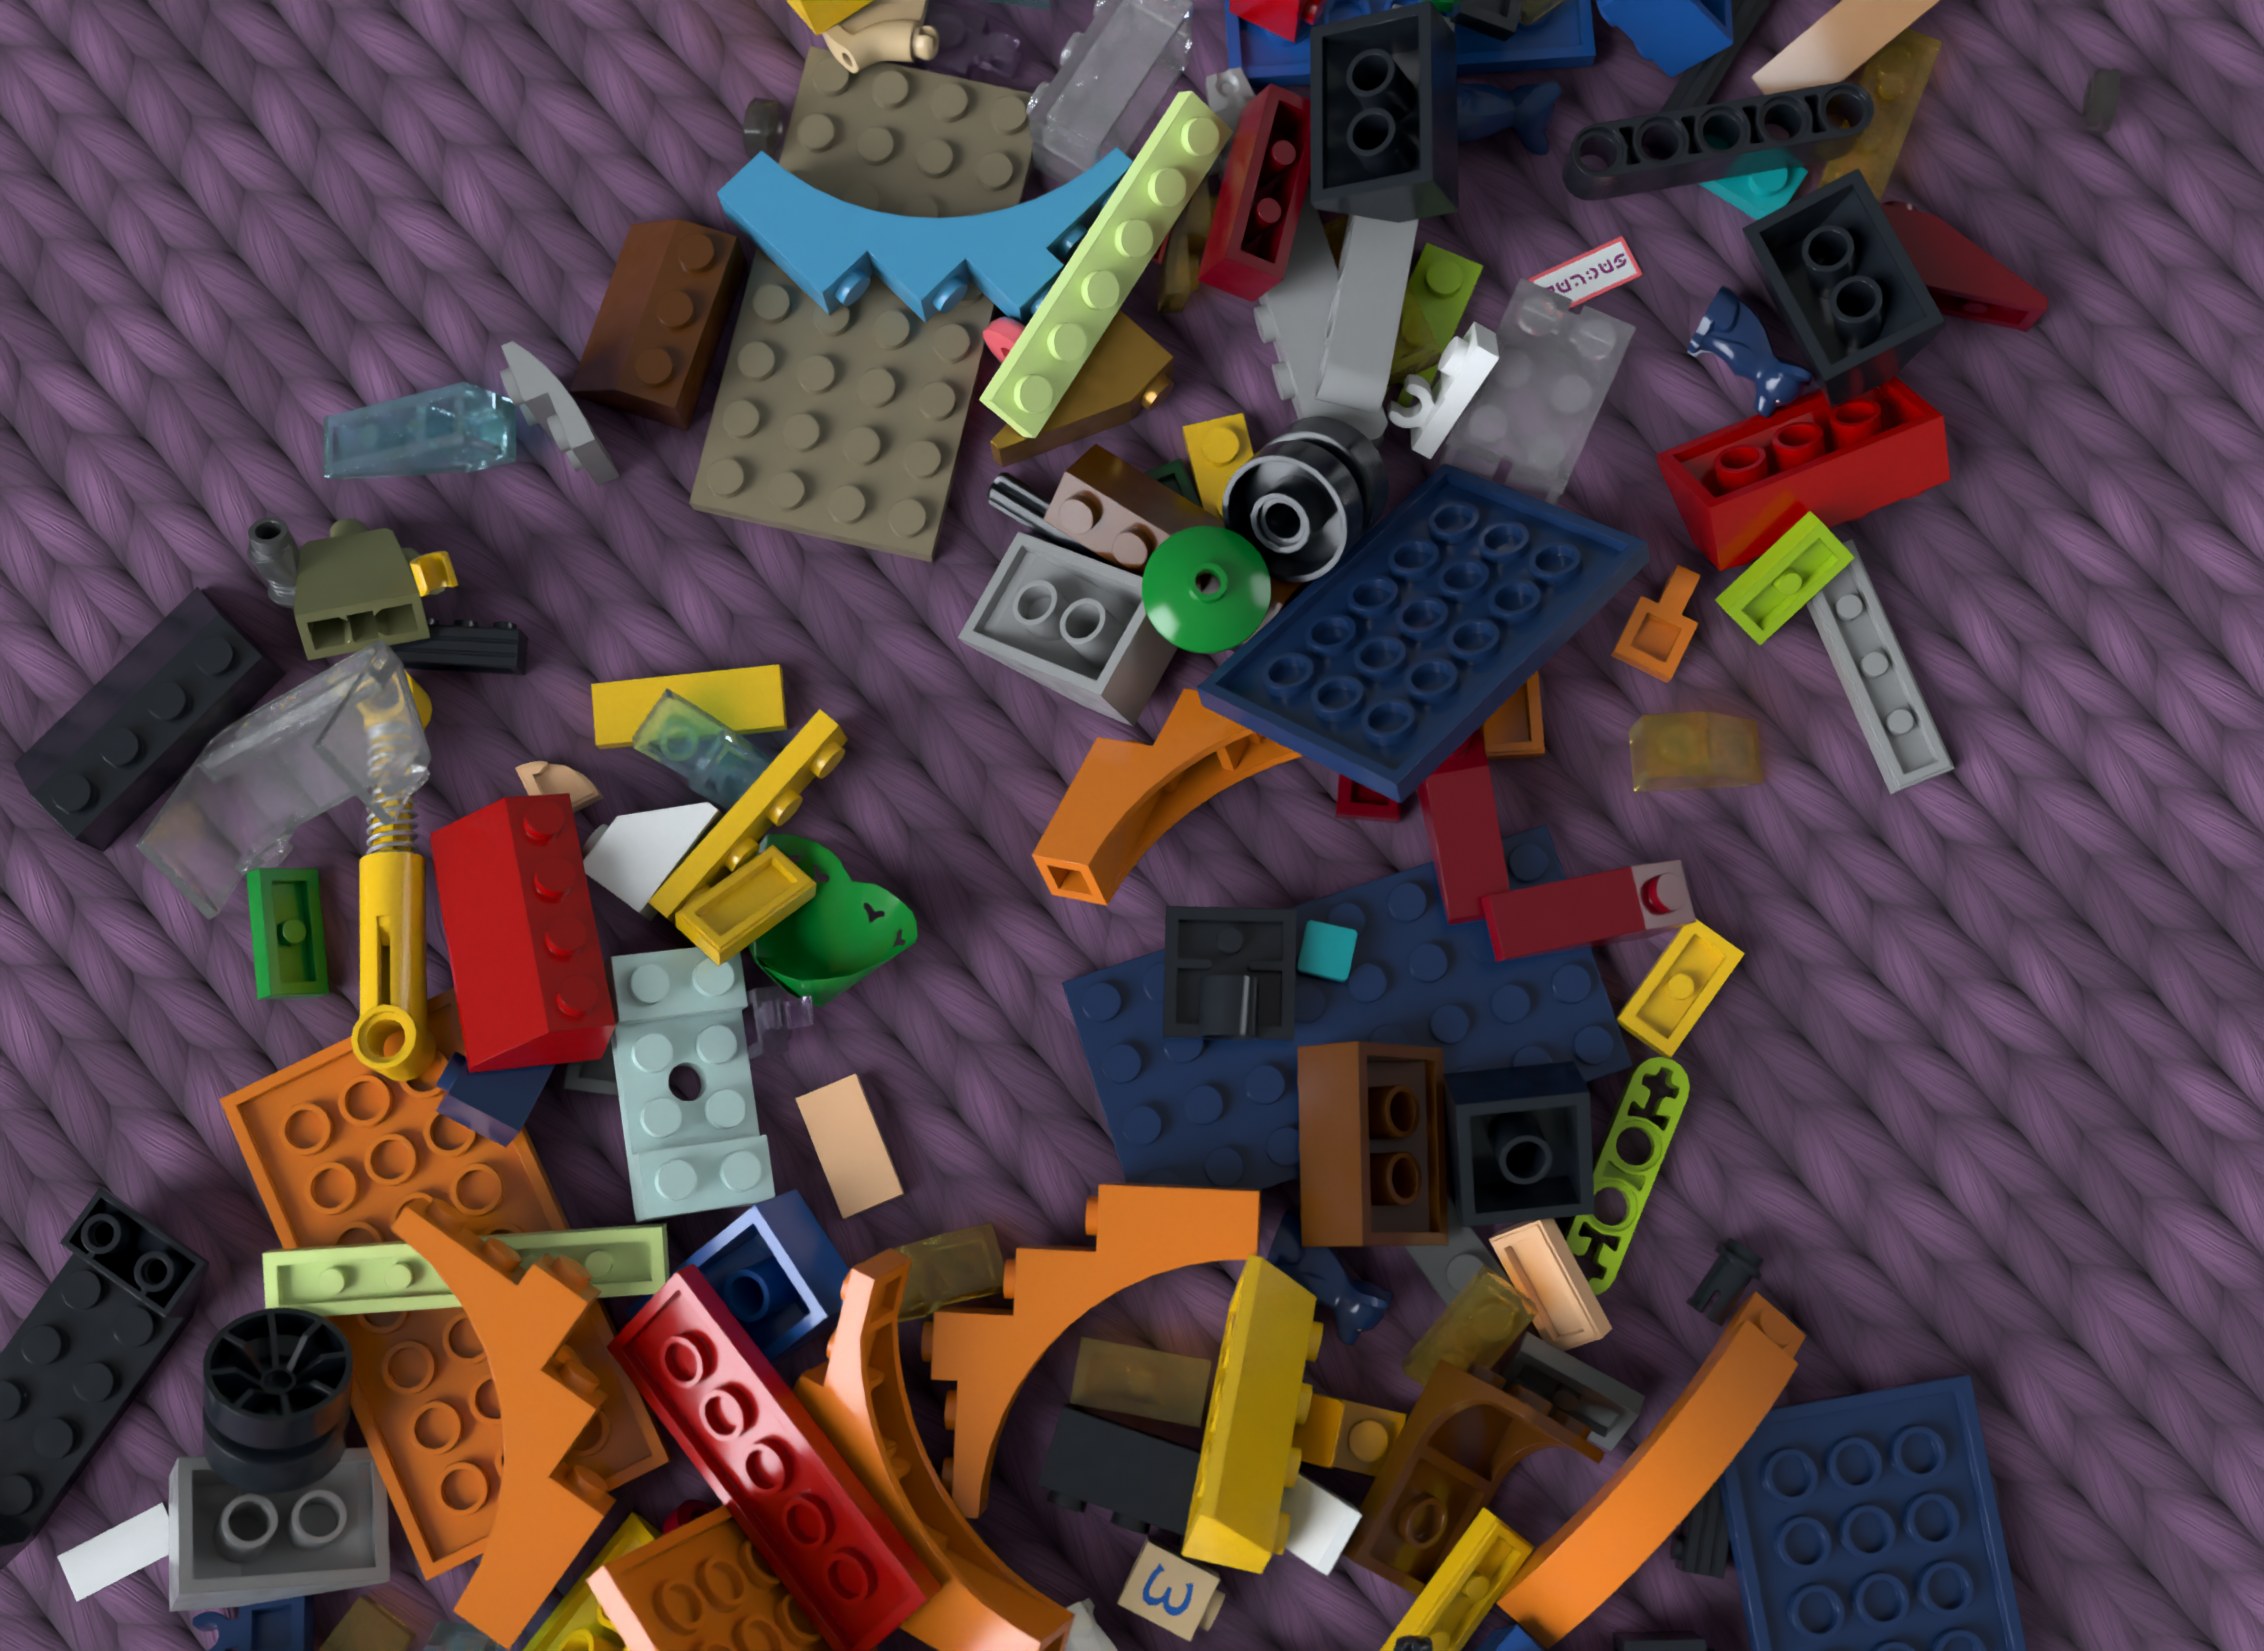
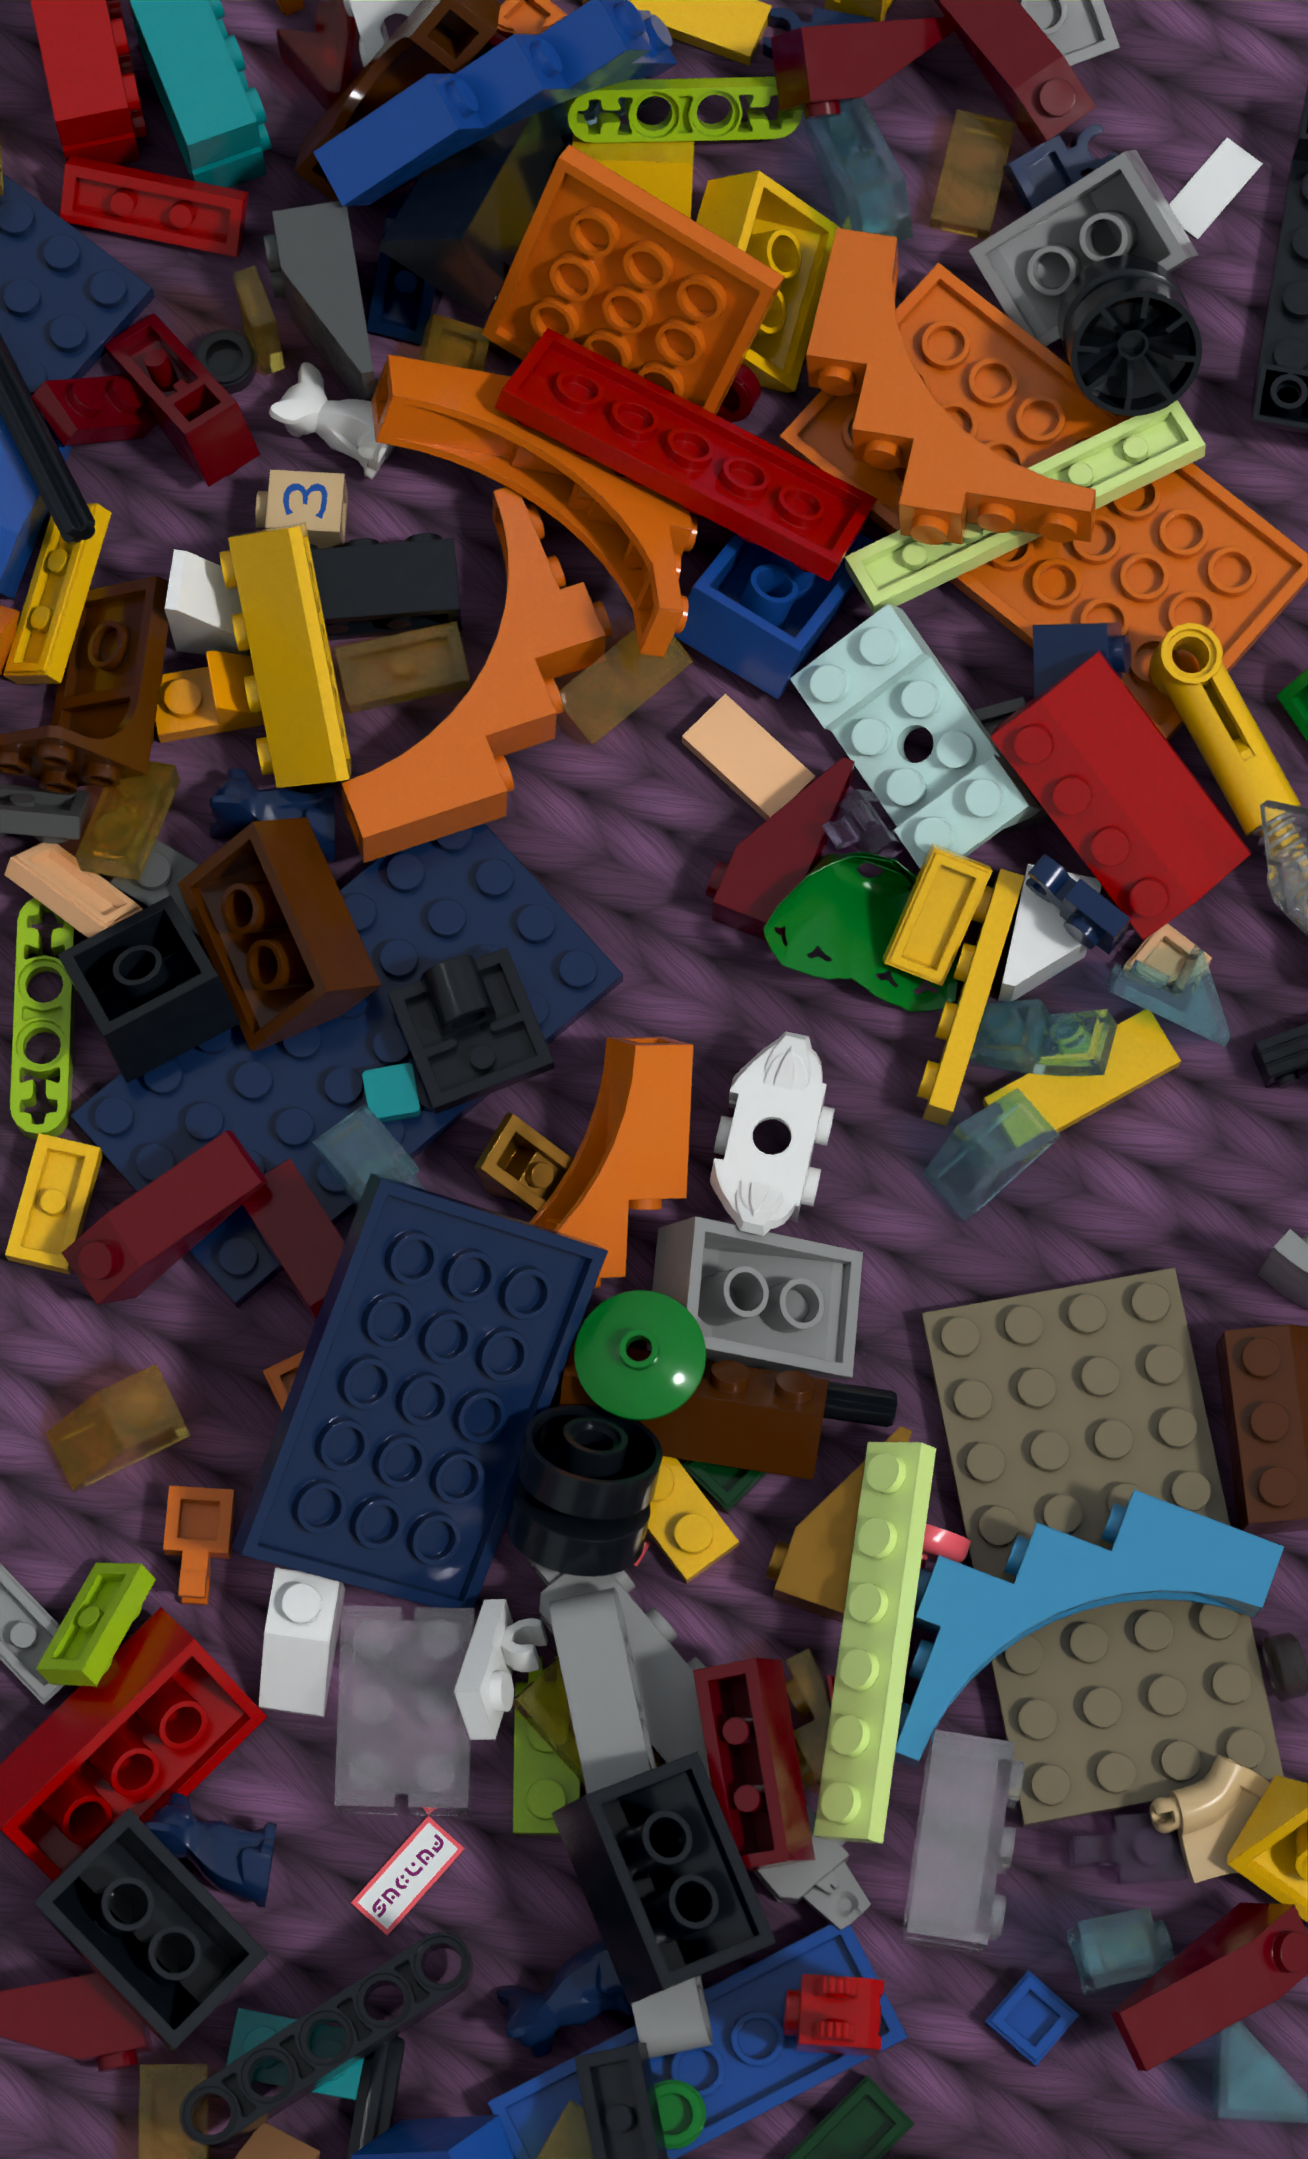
camera: 155 degrees right, 5 degrees down
(562, 728) = (1189, 1003): none -> clear light blue slope
(608, 823) = (1087, 913): none -> dark blue plate
(801, 667) = (989, 1152): none -> clear light blue slope
(870, 1024) = (777, 855): none -> dark red slope
(1029, 713) = (784, 1086): none -> white piece
(1232, 827) = (521, 1164): none -> pearl gold slope
(1374, 879) = (364, 1147): none -> clear light blue slope
(1611, 484) = (300, 1642): none -> white slope

